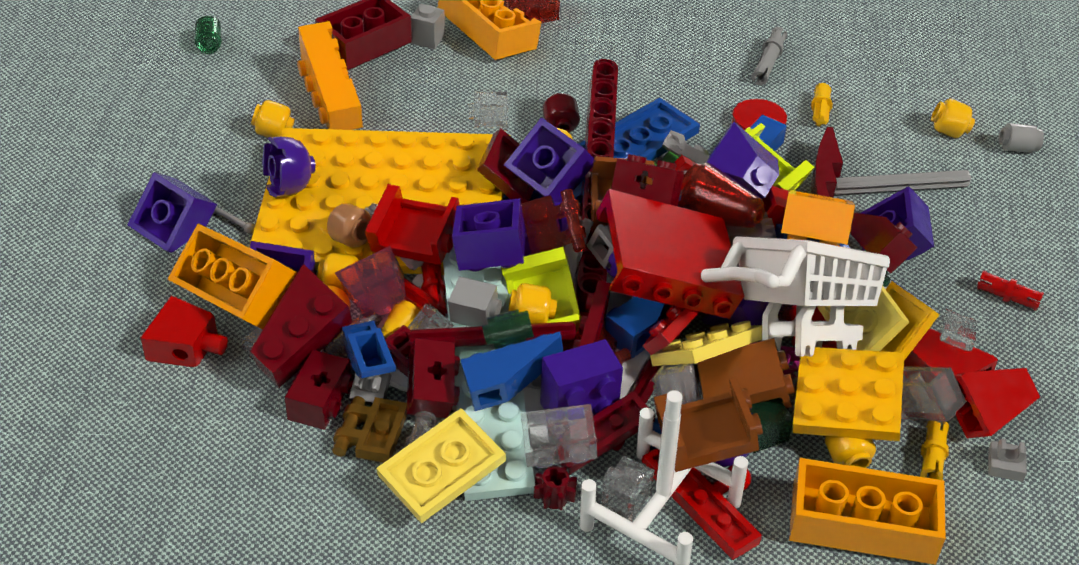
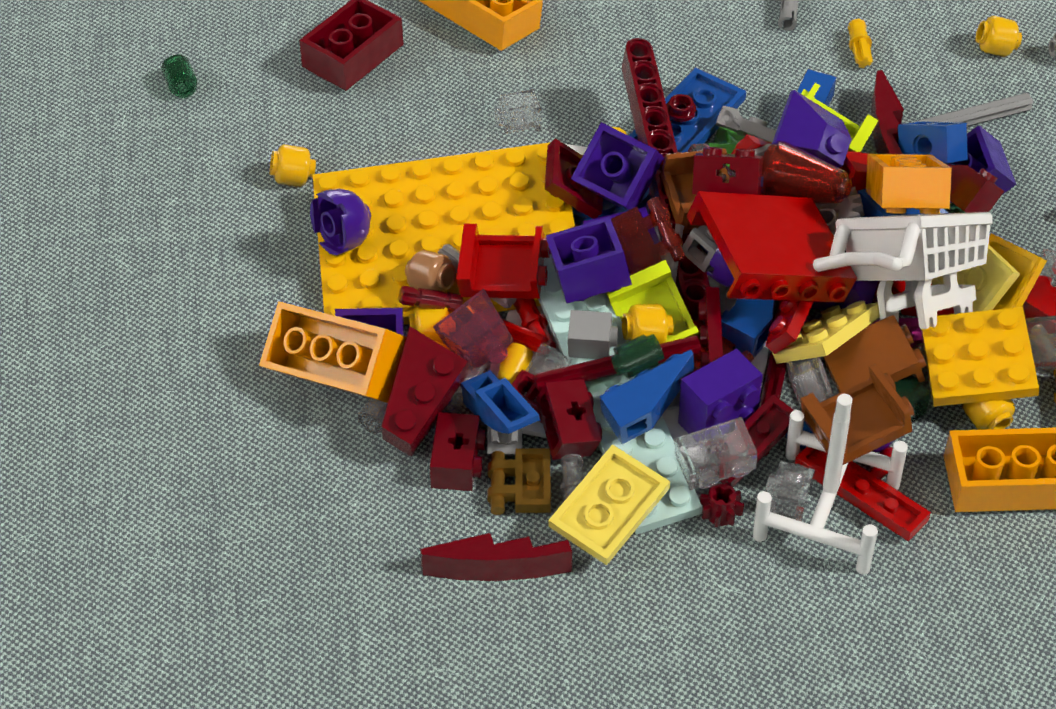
camera: 10 degrees left, 5 degrees up
(170, 212) = (226, 291): dark purple slope -> none
(182, 335) = (295, 421): red torso -> none
(248, 227) = (312, 291): light grey hinge -> none
(305, 495) = (482, 560): none -> dark red slope
(328, 78) = (336, 107): light orange wedge -> none
(339, 246) = (429, 298): none -> dark red axle
(427, 26) = (418, 24): light grey brick -> none
(562, 111) = (595, 103): dark red head -> none
(632, 127) = (681, 108): none -> dark red plate
(750, 110) = (792, 64): red tile -> none
(868, 194) = (941, 139): none -> blue brick

